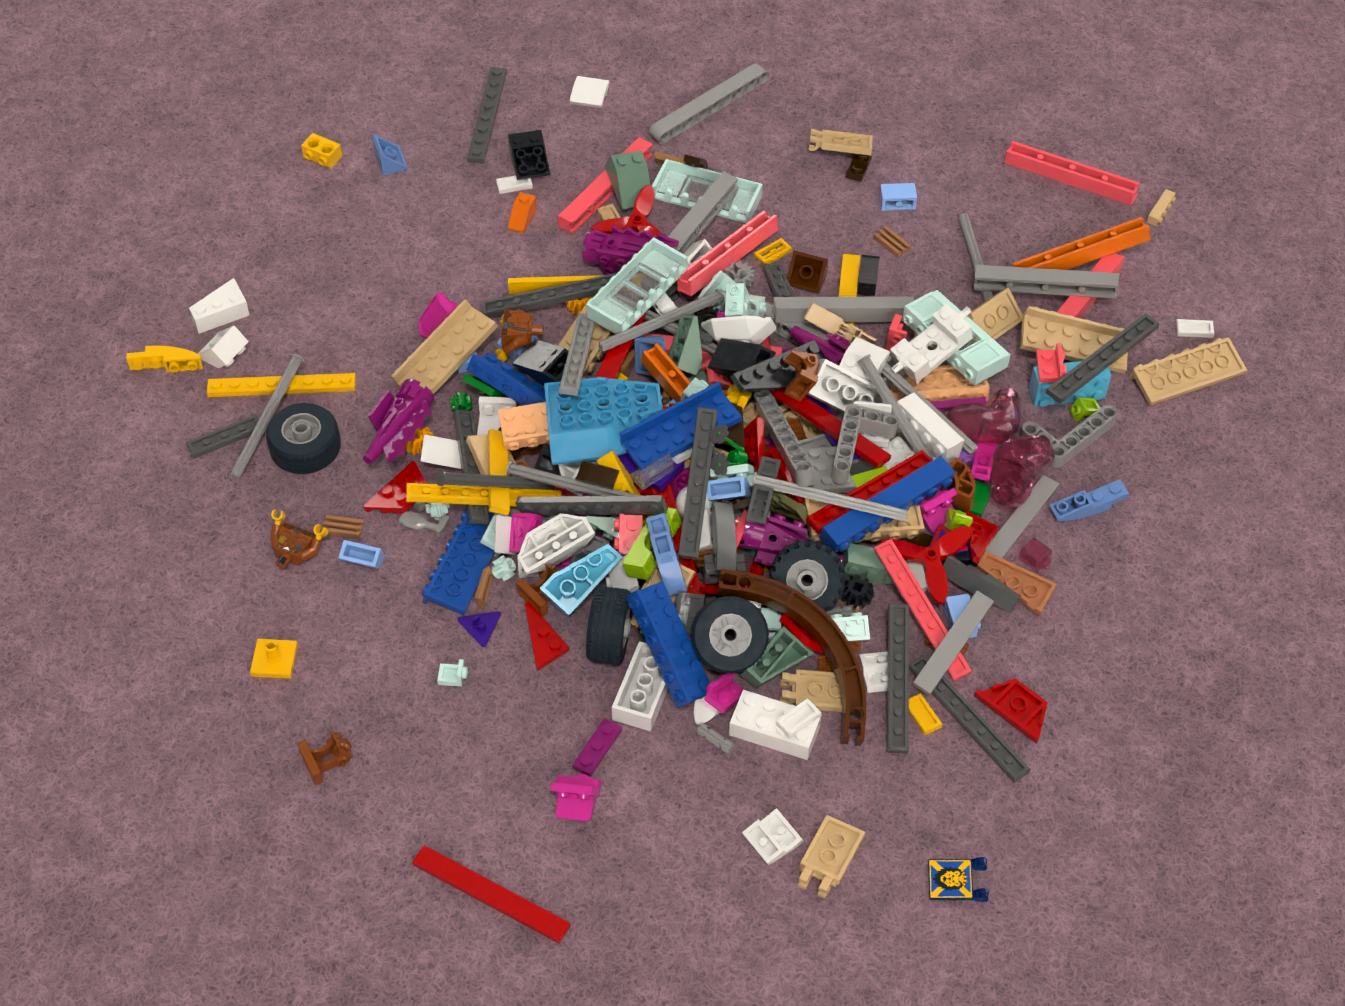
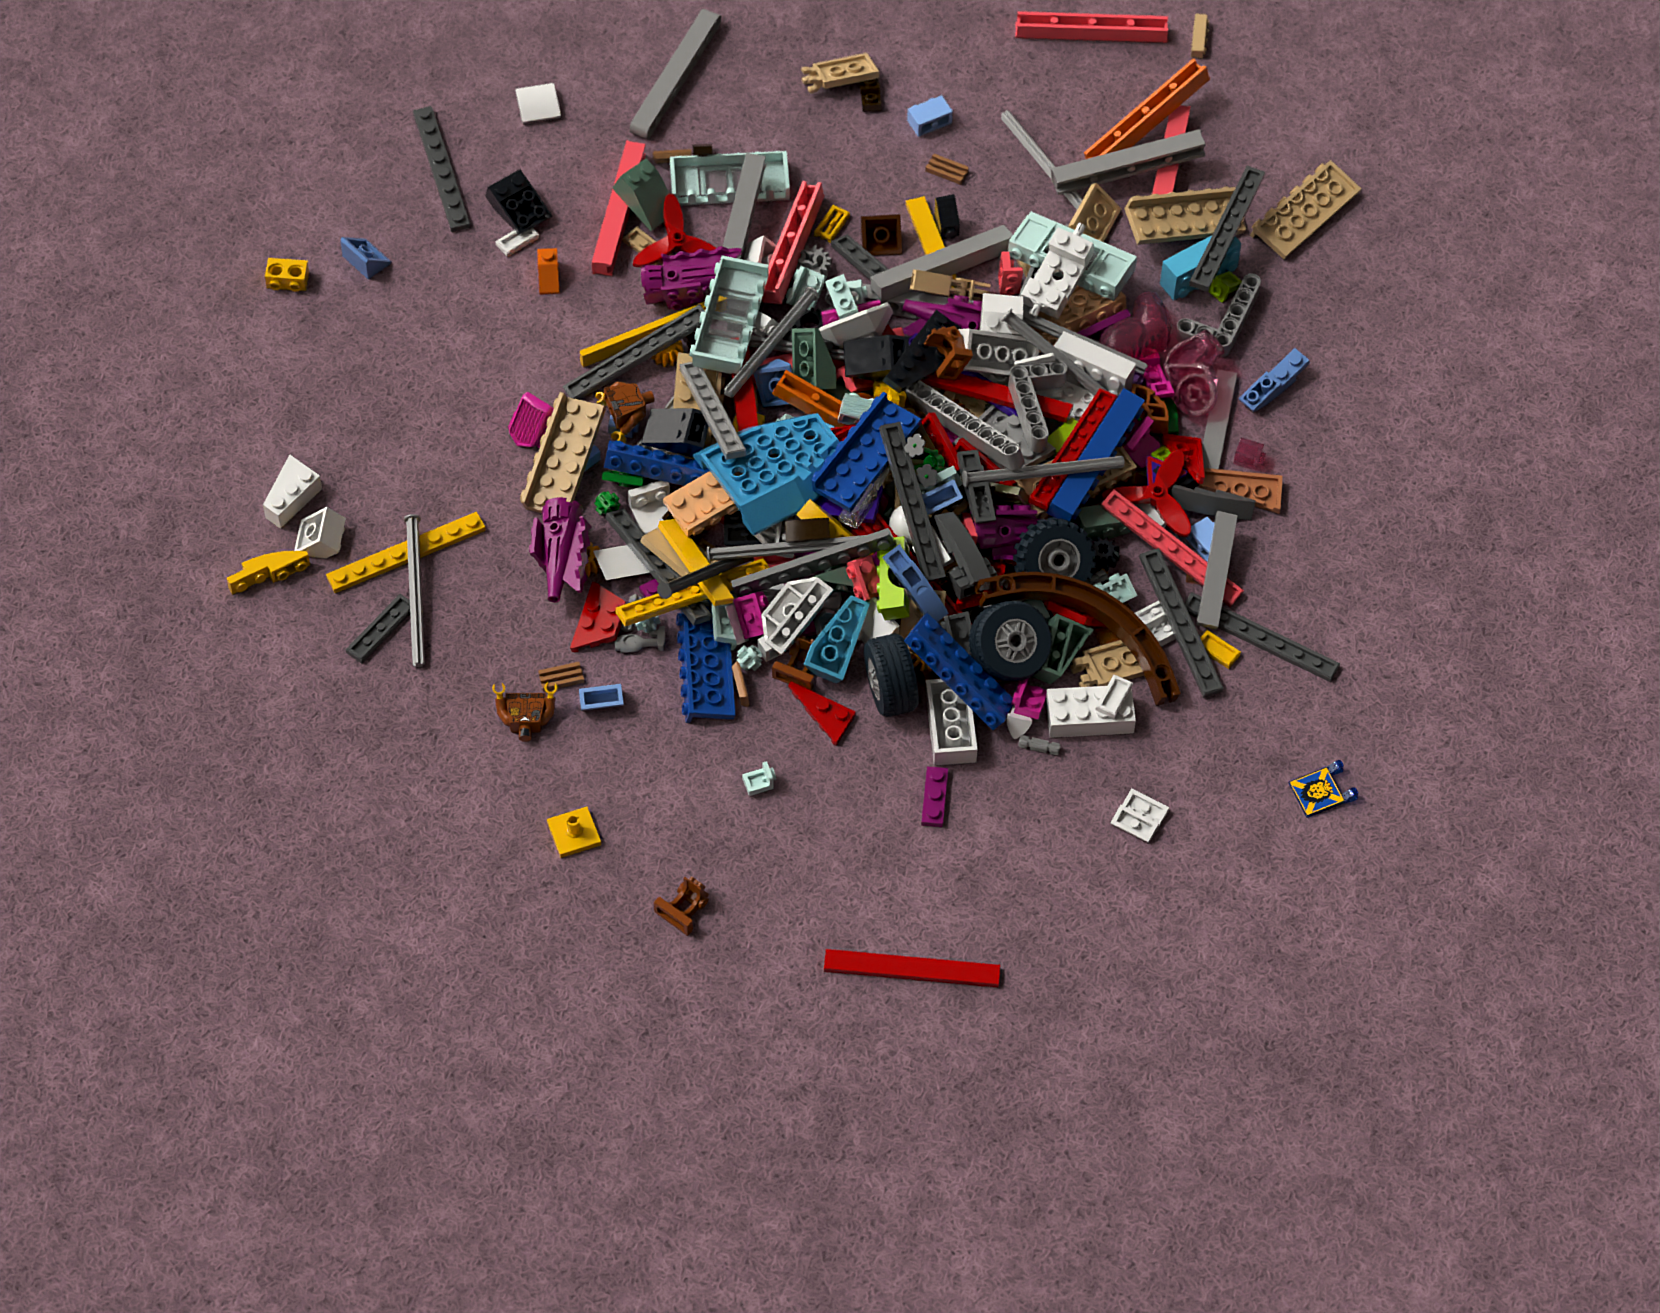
camera: 25 degrees left, 5 degrees up
(303, 438) = (470, 600): black wheel -> none
(480, 625) = (755, 723): dark purple piece -> none
(576, 796) = (943, 849): dark pink piece -> none
(830, 854) = (1199, 811): tan tile -> none
(957, 518) = (1161, 446): lime bracket -> none
(1017, 706) = (1300, 608): red wing -> none
(1050, 364) = (1180, 253): coral bracket -> none
(1195, 328) = (1290, 160): white tile -> none

